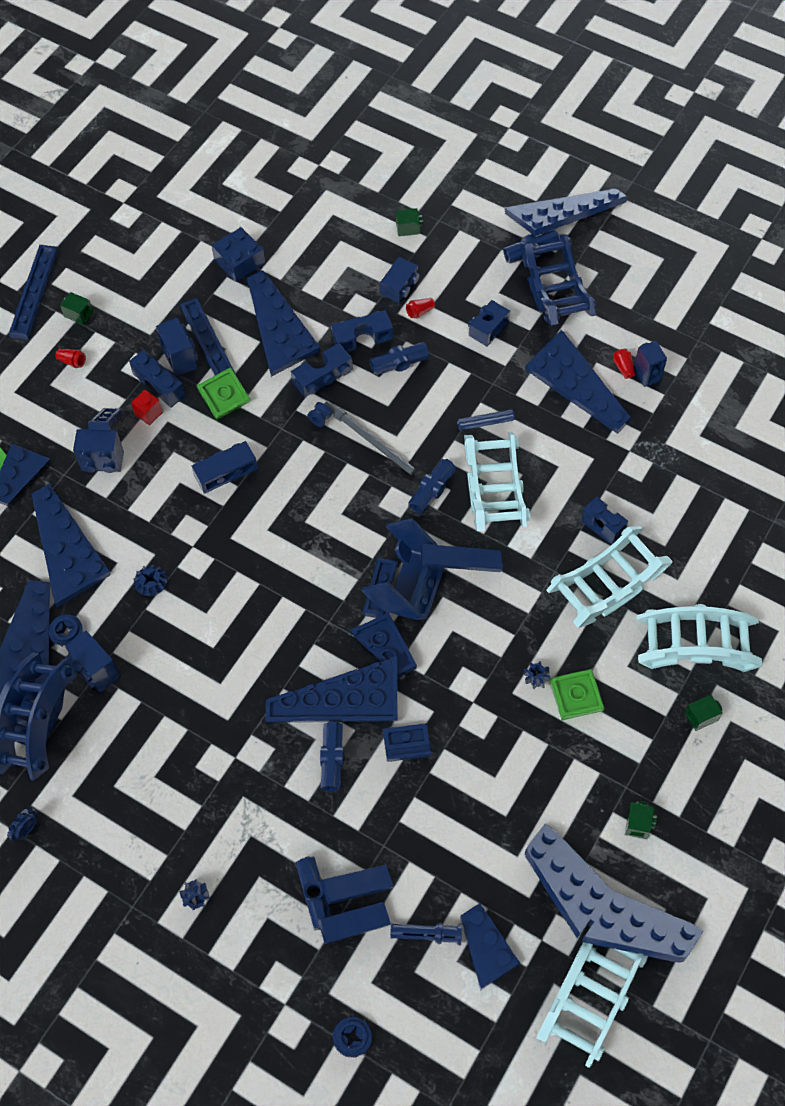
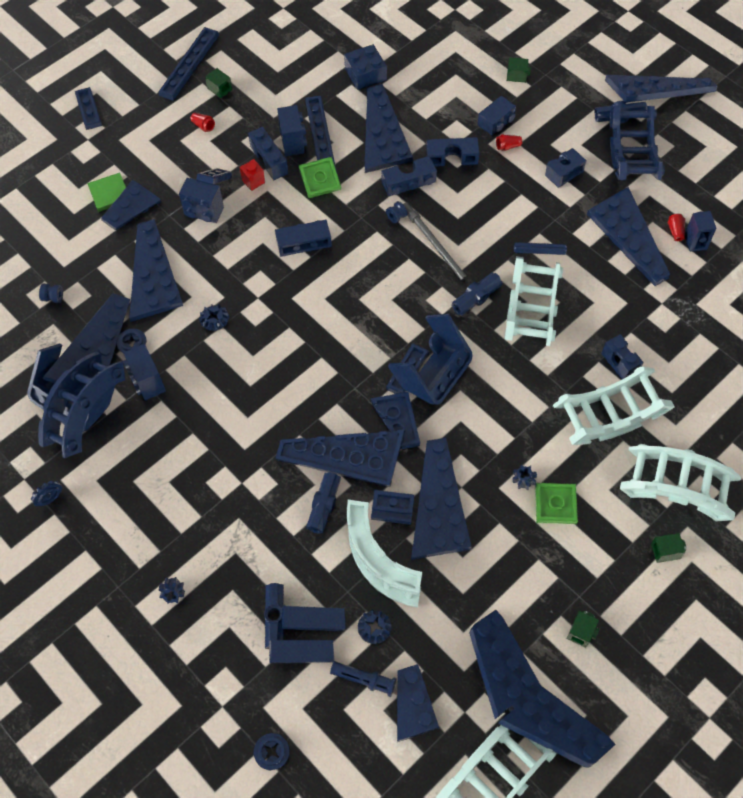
camera: 15 degrees right, 0 degrees up
(399, 358) = (478, 180): dark blue piece -> none
(419, 817) = (385, 575): none -> light aqua fence
(430, 883) = (378, 635): none -> dark blue gear
(459, 739) = (440, 514): none -> dark blue wing
(461, 558) = (484, 359): dark blue tile -> none

